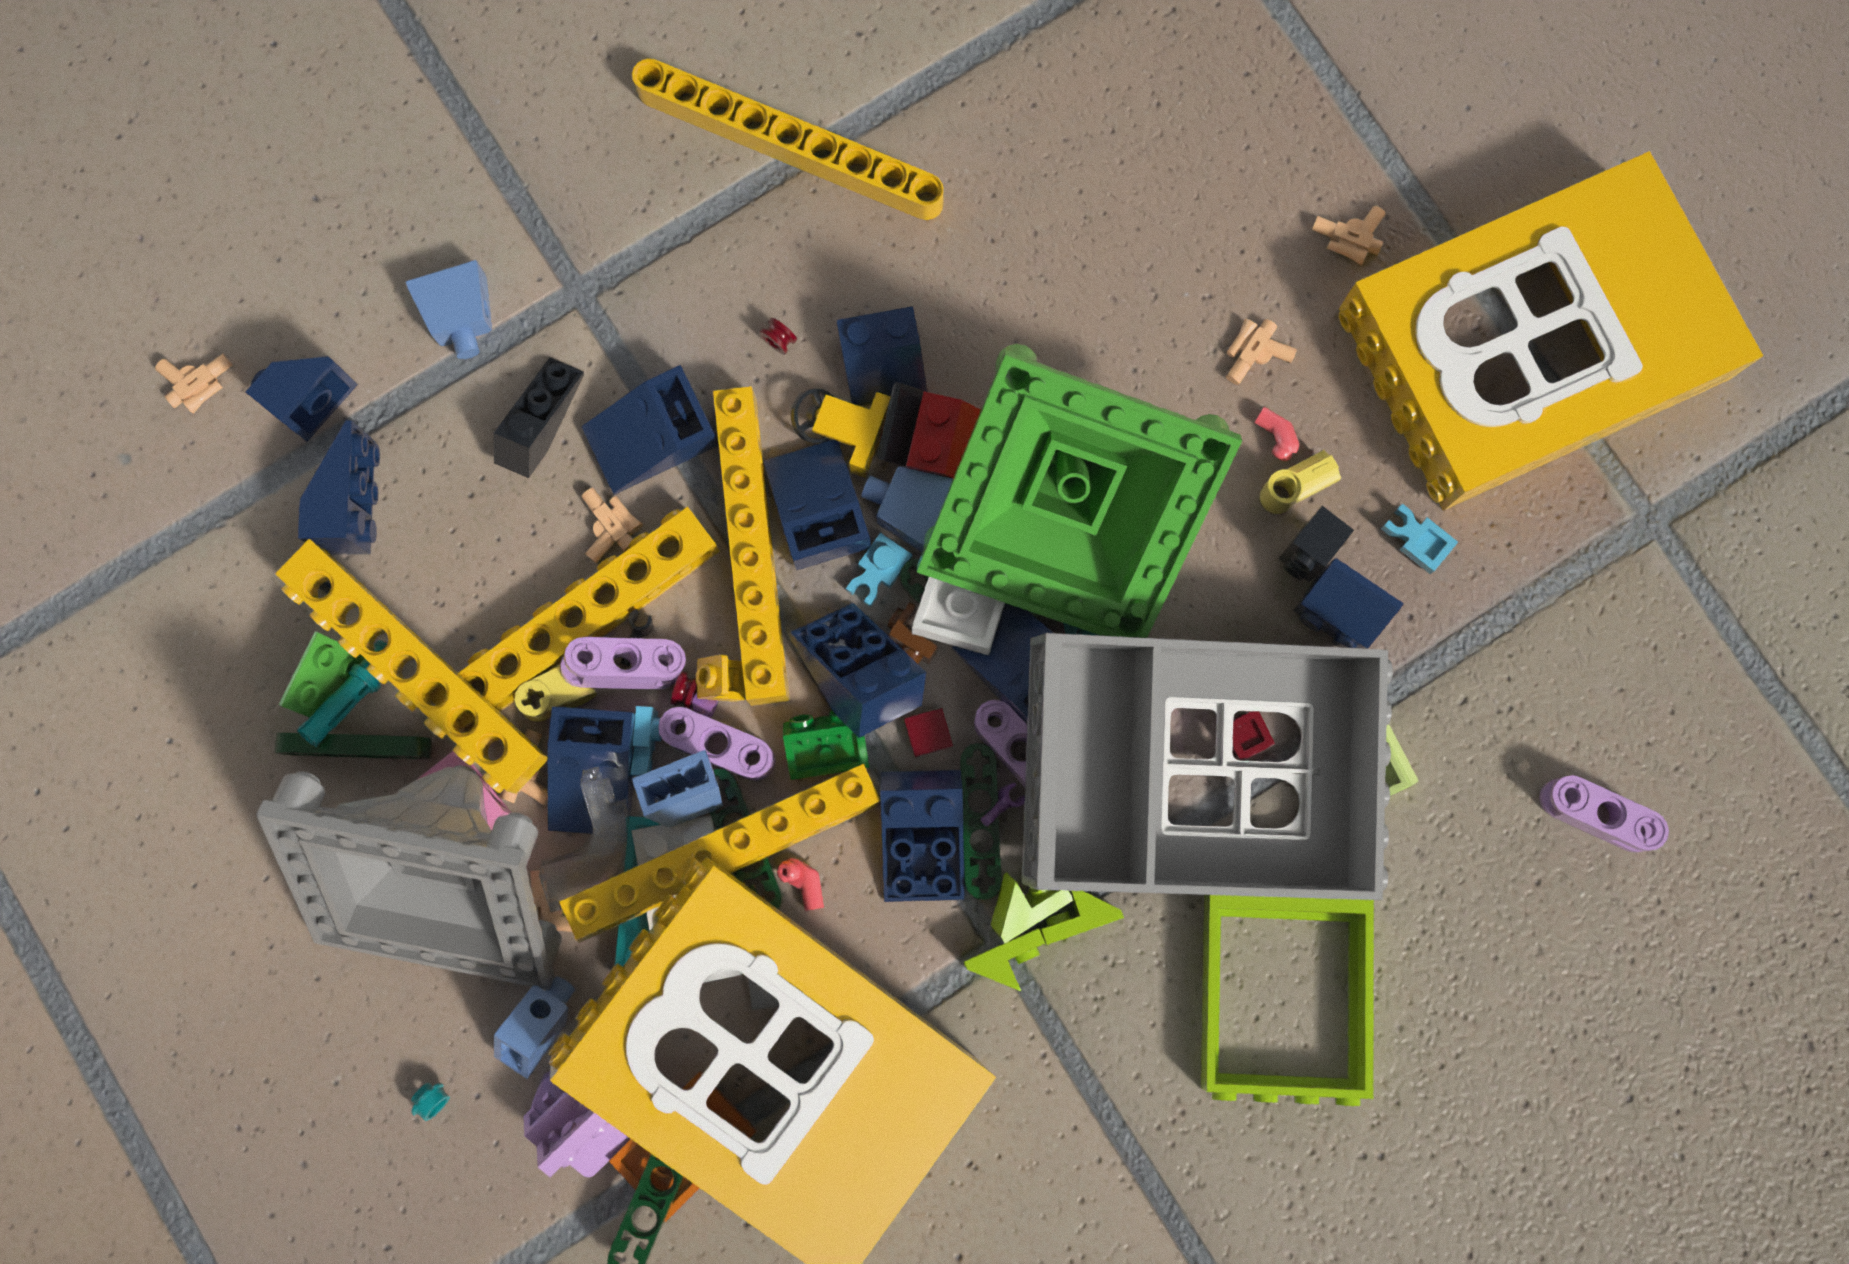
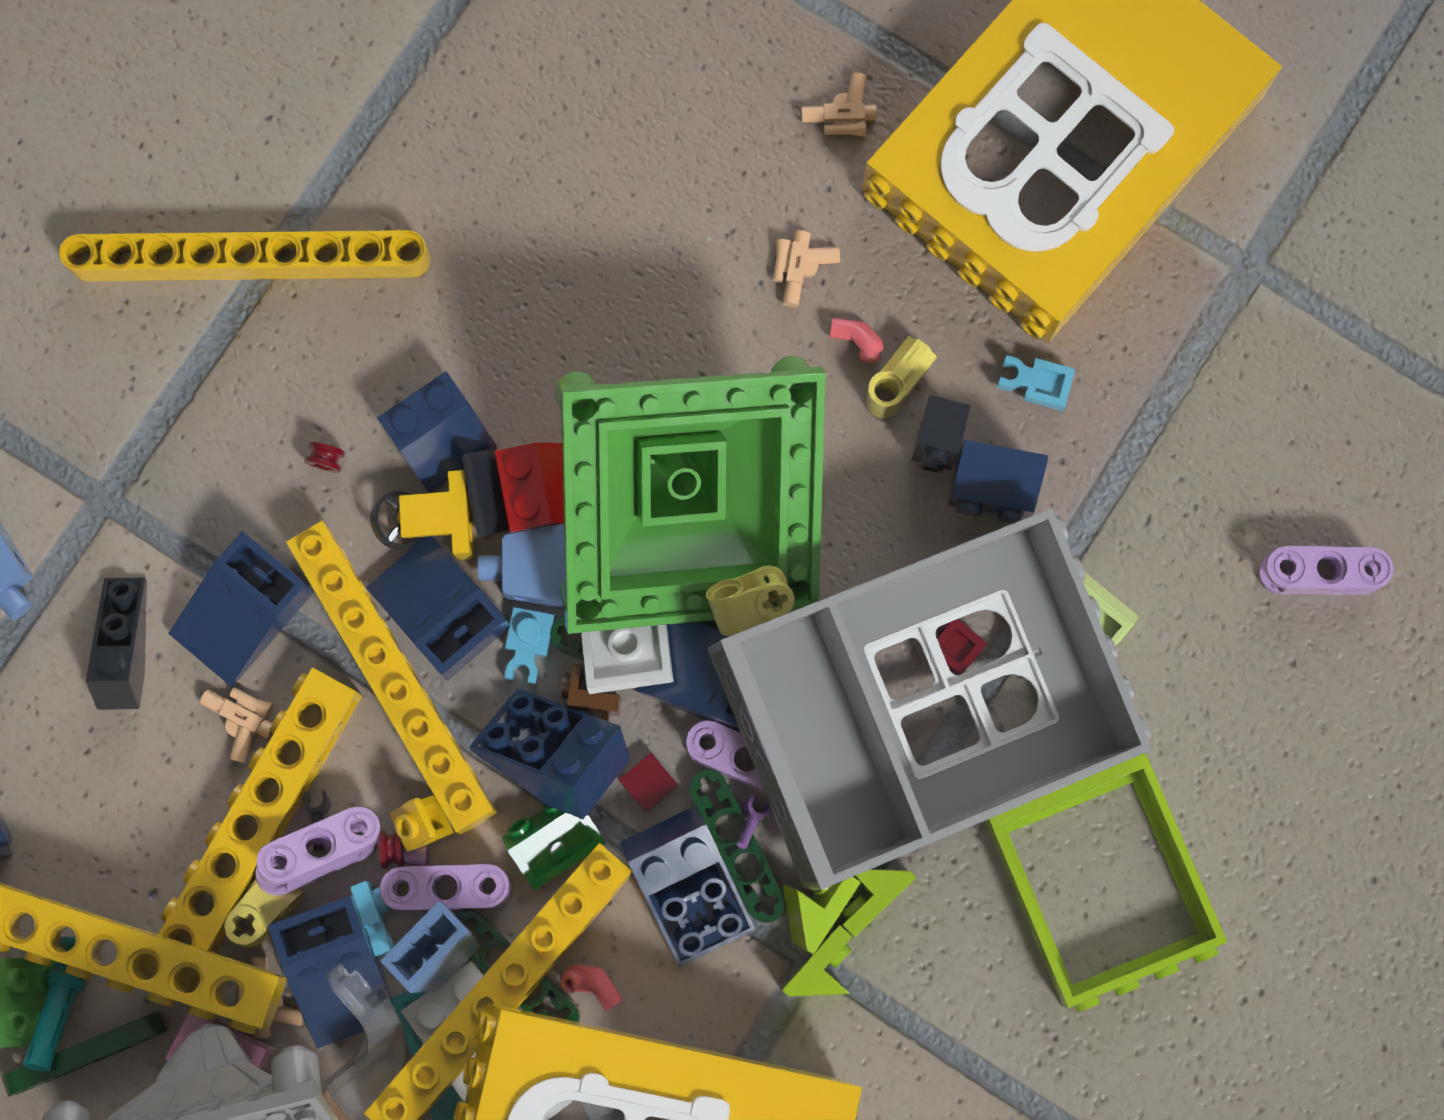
camera: 25 degrees left, 0 degrees up
(1083, 611) = (746, 602): none -> light yellow piece

